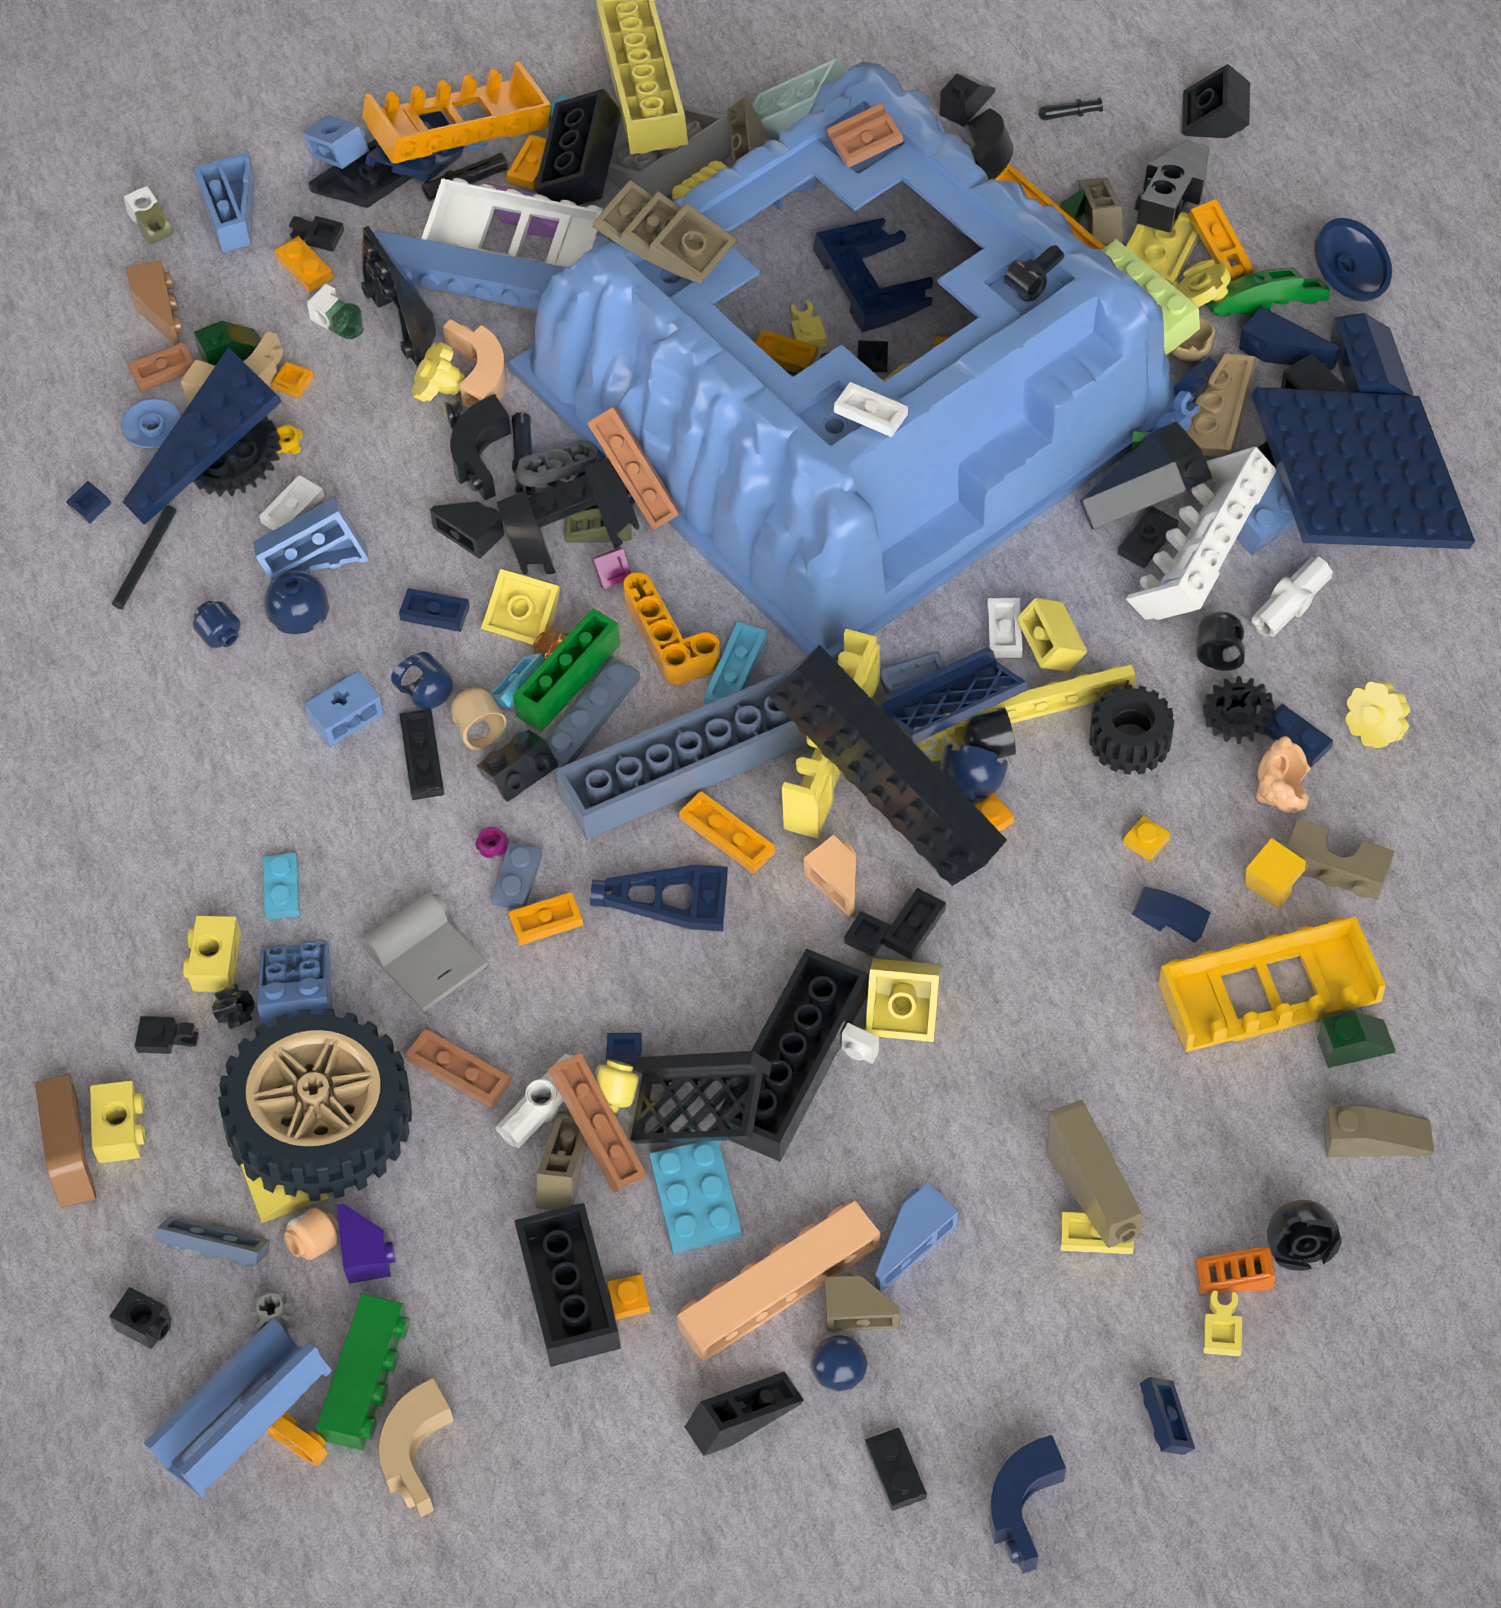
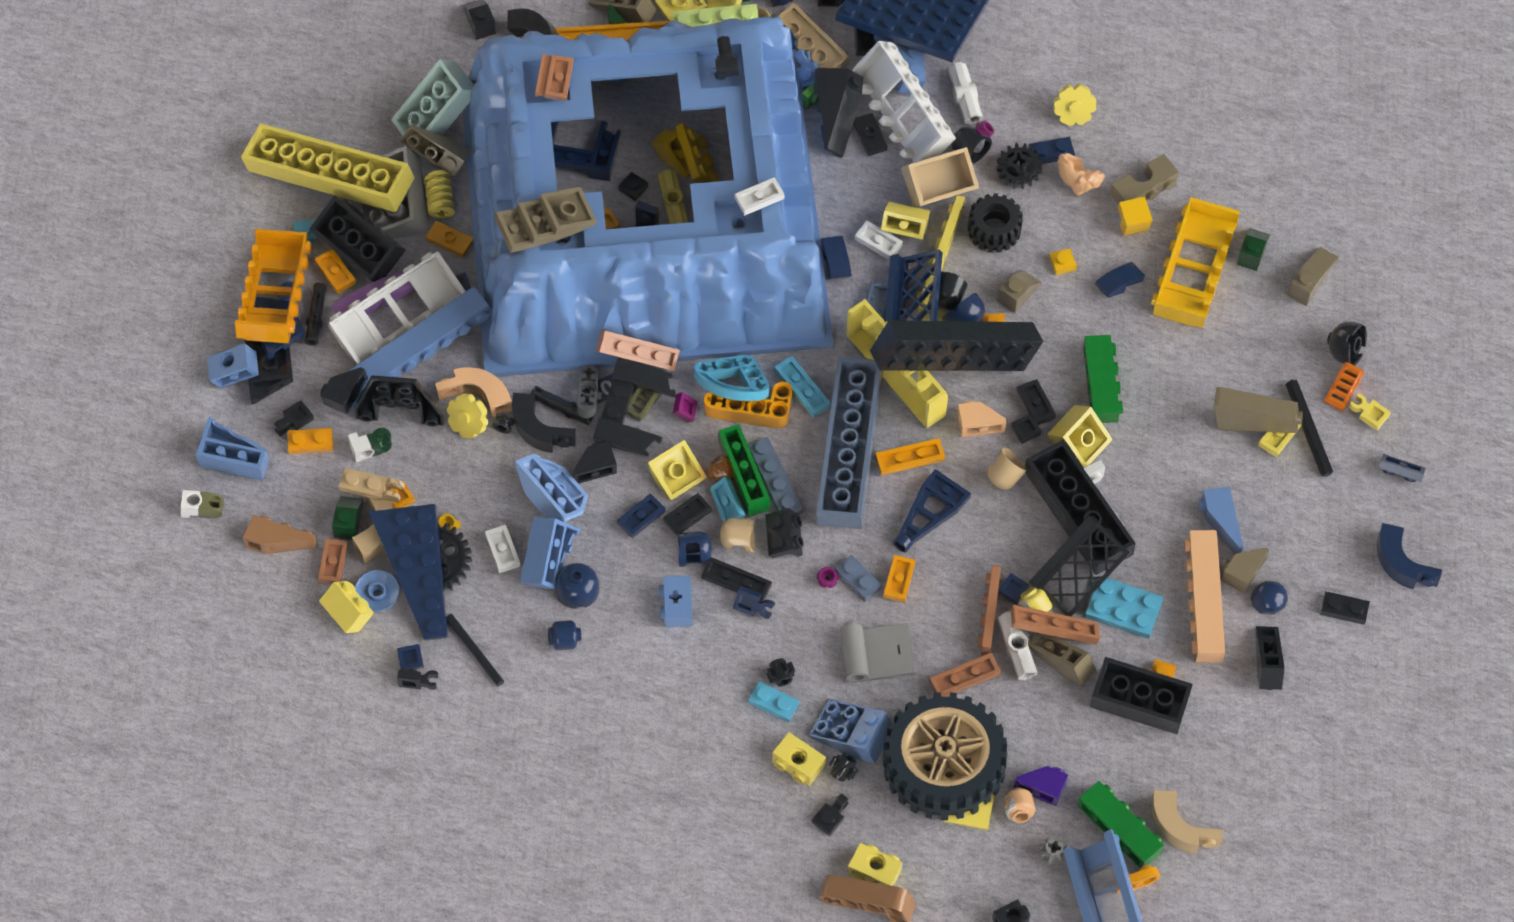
camera: 60 degrees left, 5 degrees up
(62, 519) = (413, 679): none -> black plate
(107, 406) = (346, 606): none -> light yellow brick
(212, 1241) = (987, 857): sand blue plate -> none
(270, 332) = (370, 485): none -> tan hinge
(320, 866) = (780, 672): none -> black gear
(353, 237) = (343, 389): none -> black slope
(394, 781) = (750, 603): none -> dark blue plate
(399, 500) = (551, 488): none -> light blue wedge
(471, 653) = (687, 514): none -> black plate
(579, 1039) = (989, 601): none -> nougat plate
(709, 590) = (745, 366): none -> medium azure beam
(772, 940) = (1005, 473): none -> tan helmet
(942, 598) = (836, 257): none -> dark blue slope
(1006, 975) = (1101, 377): none -> green brick
(1062, 810) = (1017, 290): none -> dark tan slope
(1136, 1265) = (1310, 429): none -> black axle
(1137, 630) = (940, 177): none -> tan piece
(1258, 646) = (984, 128): none -> magenta plate

